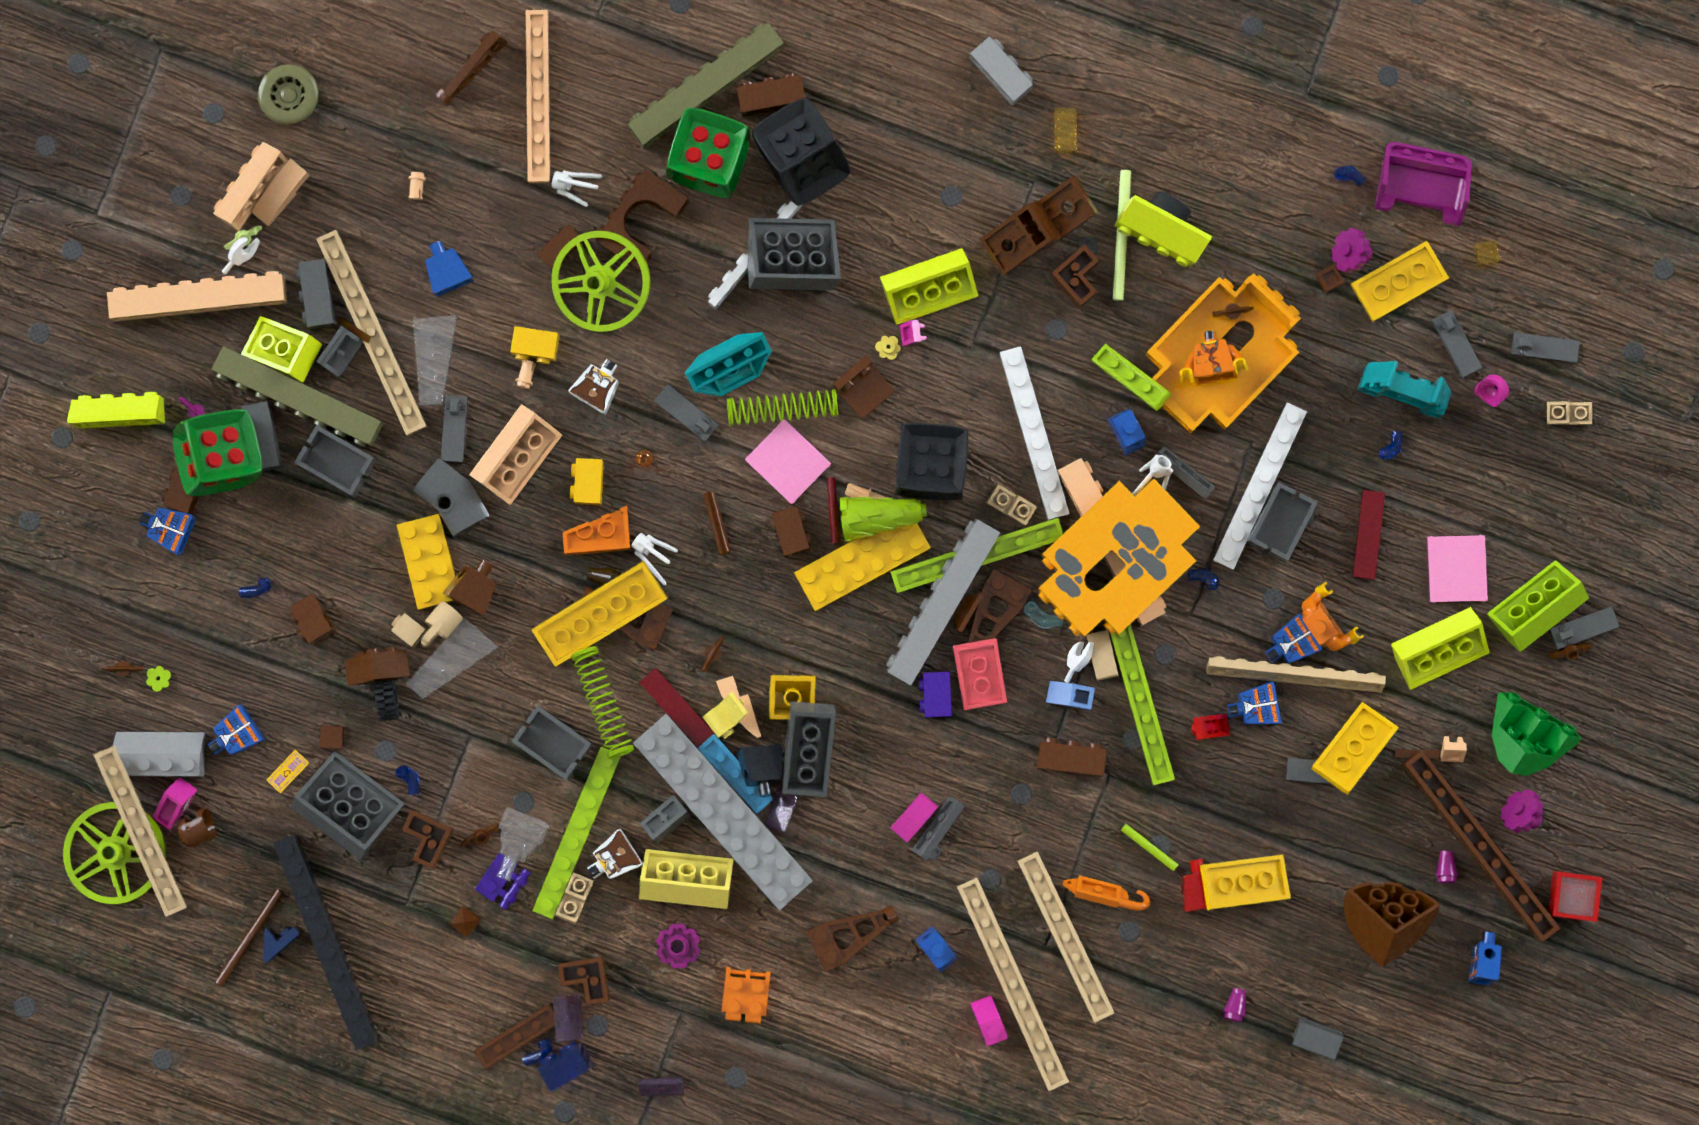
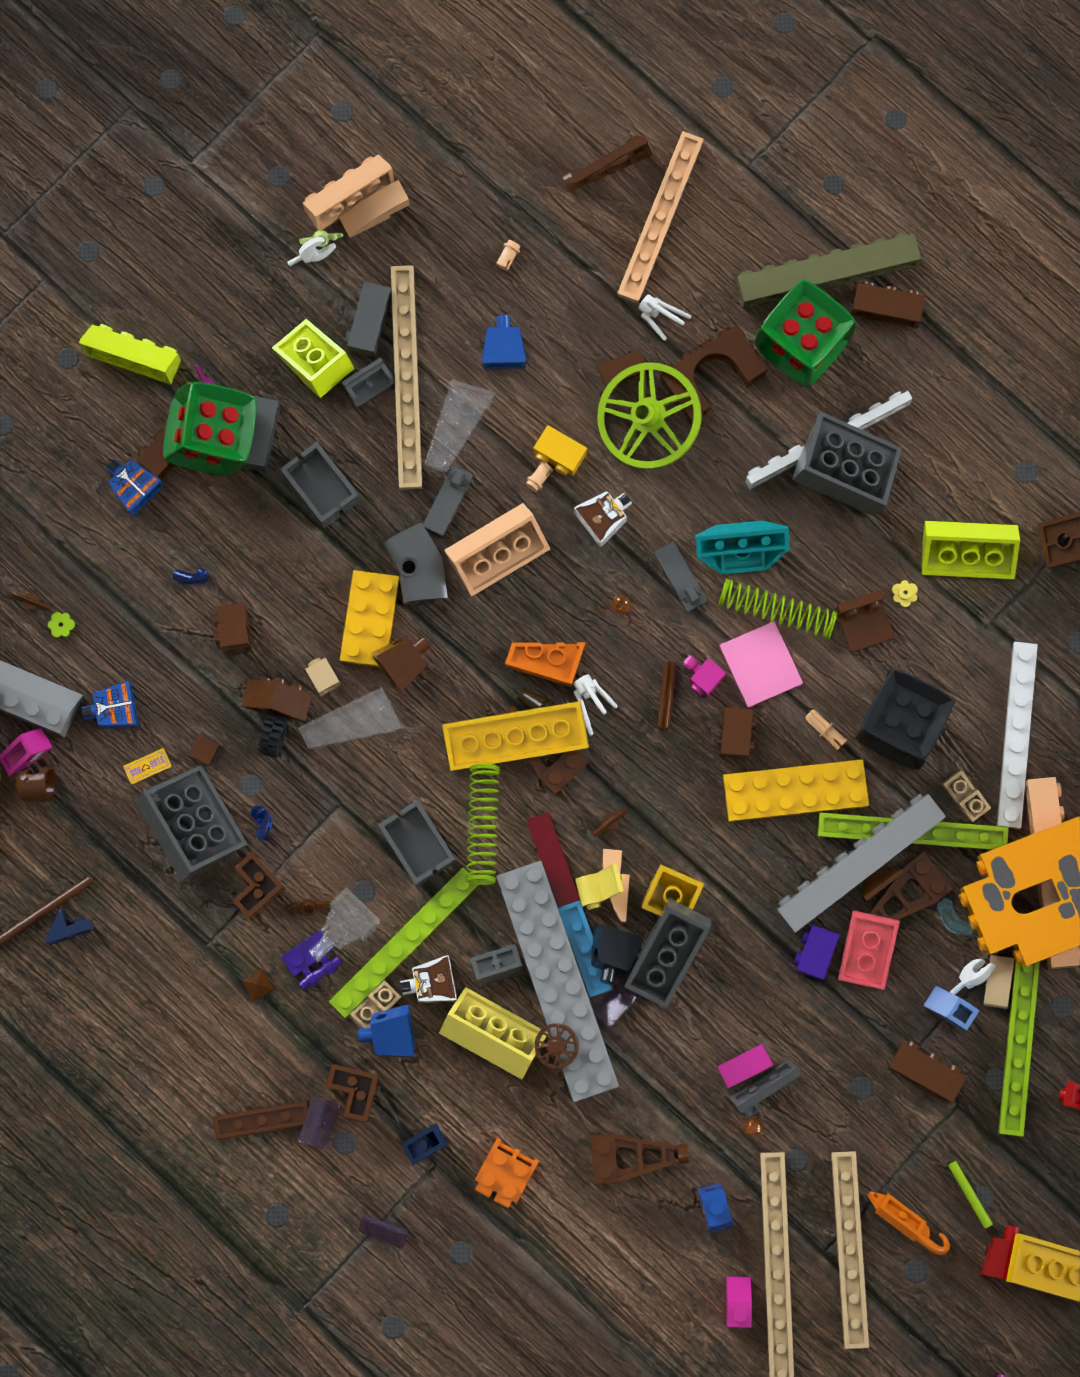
camera: 25 degrees right, 5 degrees down
(197, 297) = (253, 276): light nougat brick -> none
(288, 94) = (421, 121): olive wheel -> none
(297, 396) = (309, 409): olive brick -> none
(326, 942) = (114, 948): black brick -> none
(356, 331) = (393, 370): reddish brown piece -> none
(441, 622) = (356, 682): tan piece -> none
(538, 1056) = (275, 1148): clear blue arm -> none
(563, 1068) = (297, 1169): clear blue brick -> none
(588, 481) = (556, 604): yellow brick -> none
(597, 915) = (390, 1032): none -> blue torso
(666, 999) = (424, 1144): none -> dark blue slope
(678, 945) = (458, 1096): magenta plant -> none
(743, 493) = (705, 677): none -> dark pink brick
(745, 868) = (556, 1045): none -> reddish brown wheel
(801, 151) = (897, 367): black piece -> none
(833, 512) = (786, 729): dark red bar -> none
(868, 516) = (820, 748): lime cone -> none
(911, 332) = (933, 587): dark pink tile -> none
(941, 866) = (753, 1126): none -> clear orange hinge

